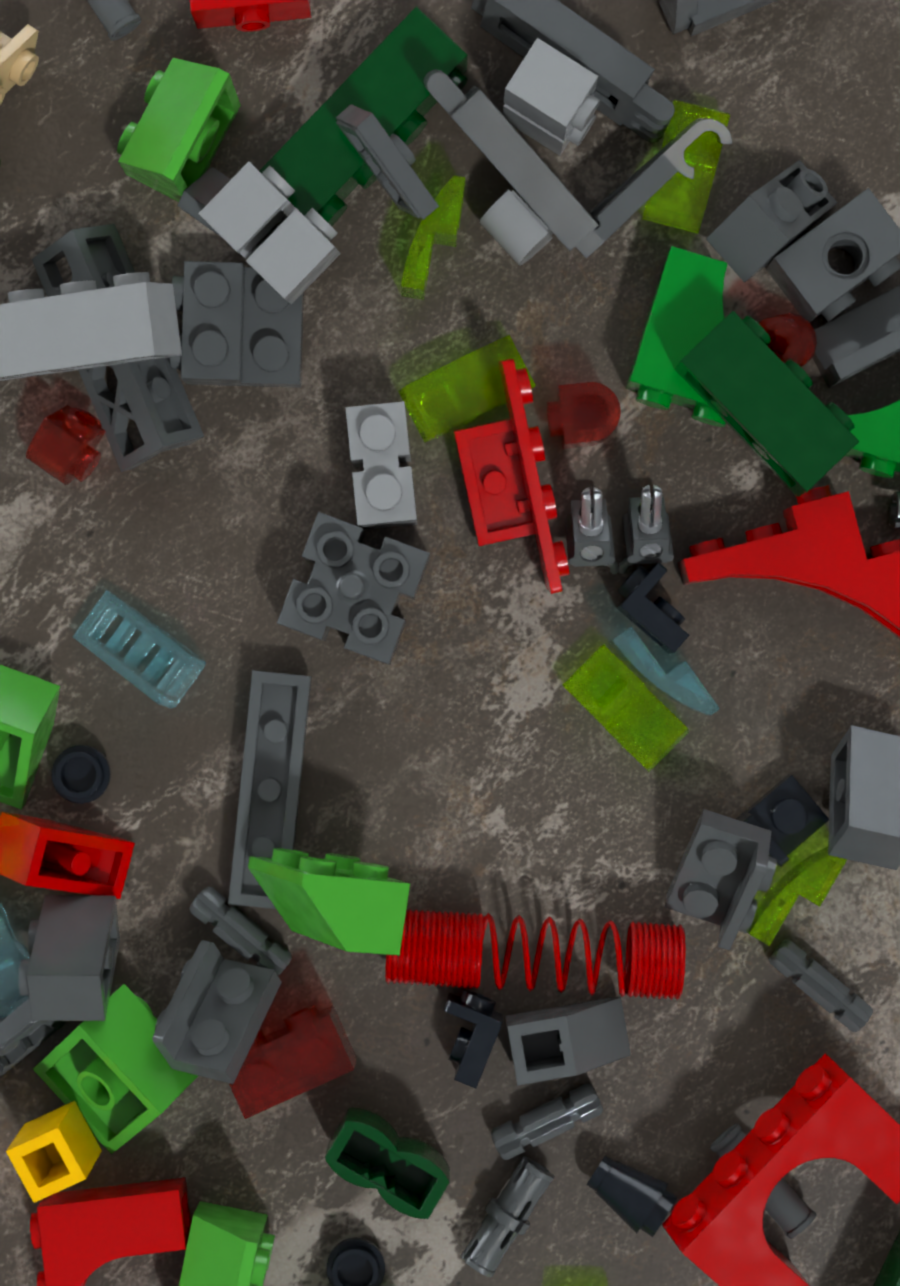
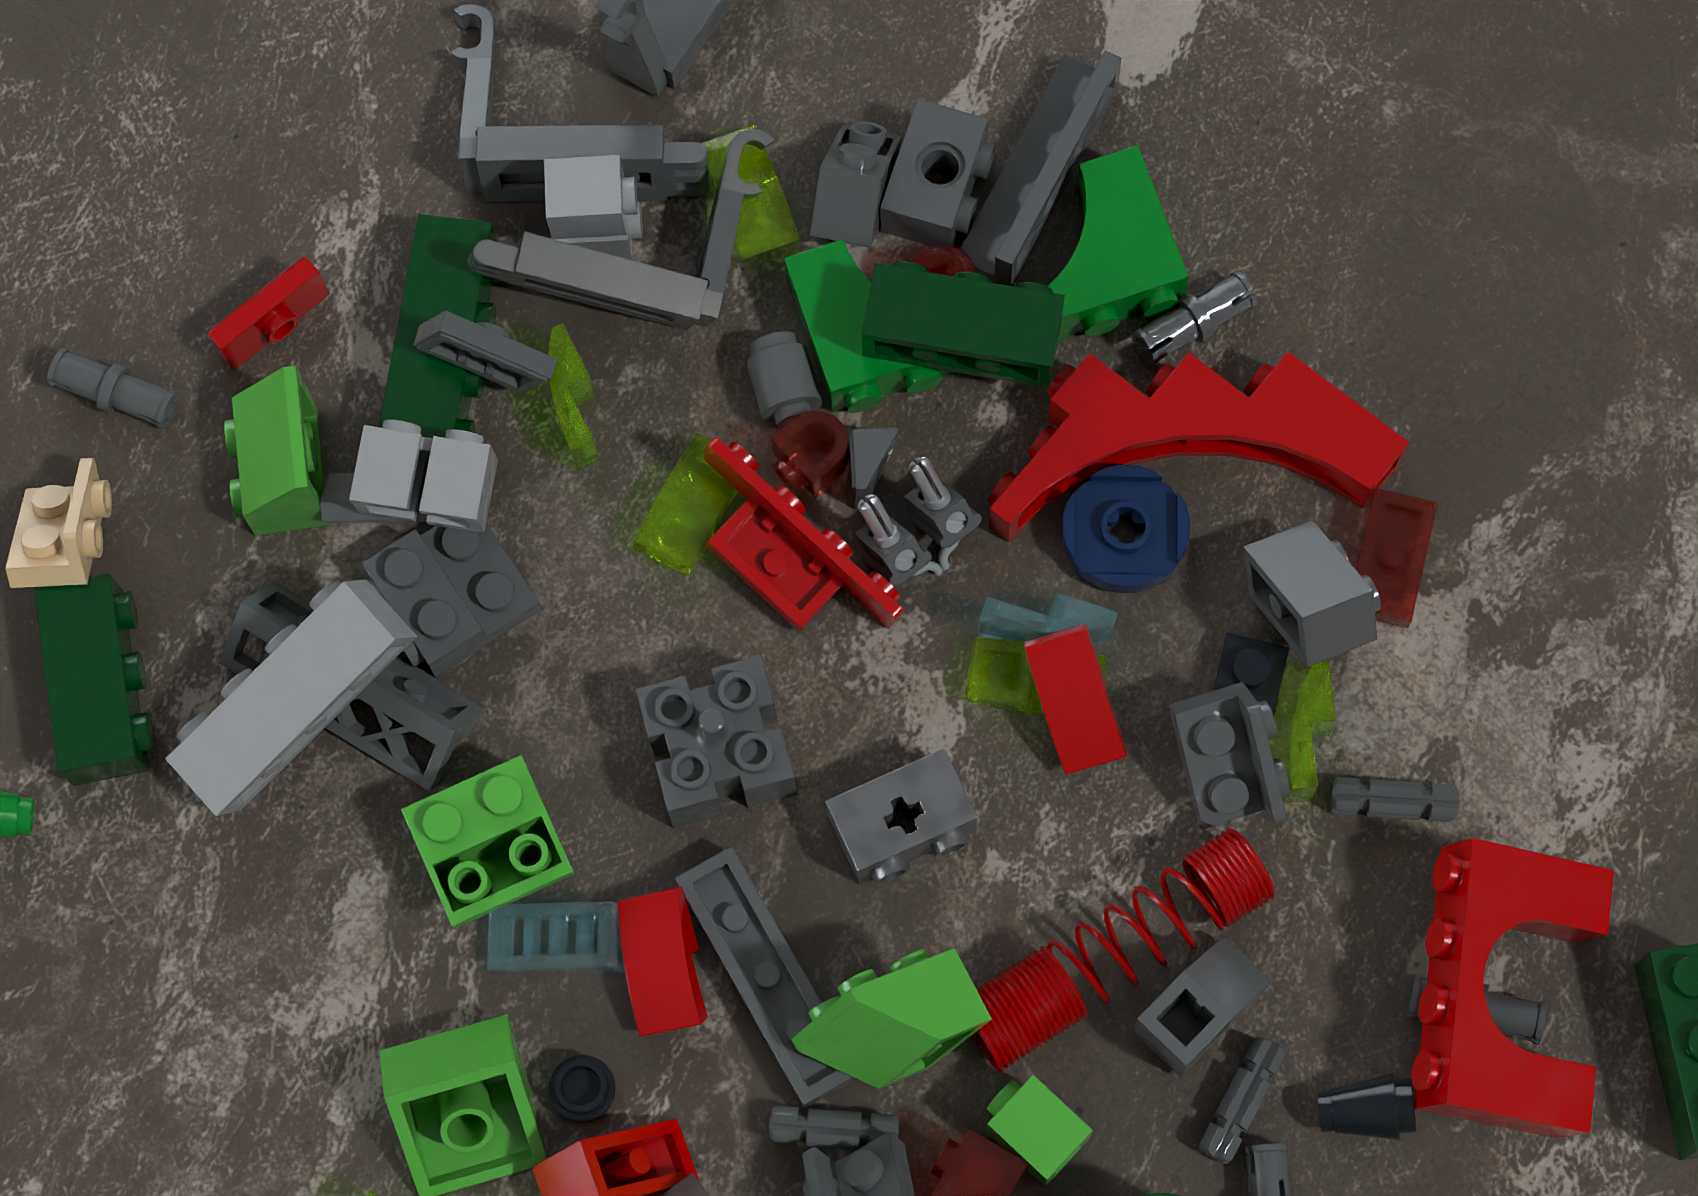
camera: 30 degrees left, 15 degrees down
(67, 444) = (364, 798): clear red plate -> none
(132, 549) = (487, 841): none -> bright green slope
(197, 723) = (658, 961): none -> red slope
(381, 1043) = (1036, 1128): none -> bright green brick
(383, 489) = (681, 631): light grey piece -> none
(422, 722) = (920, 789): none -> flat silver brick
(475, 1045) = (1124, 1075): black bracket -> none
(516, 227) = (637, 338): light grey brick -> none
(603, 340) = (782, 378): none -> dark grey brick
(621, 449) = (868, 458): none -> dark grey slope
(641, 748) = (1075, 699): none -> red slope
(656, 619) = (1005, 580): black bracket -> none
(809, 637) = (1151, 504): none -> dark blue plate

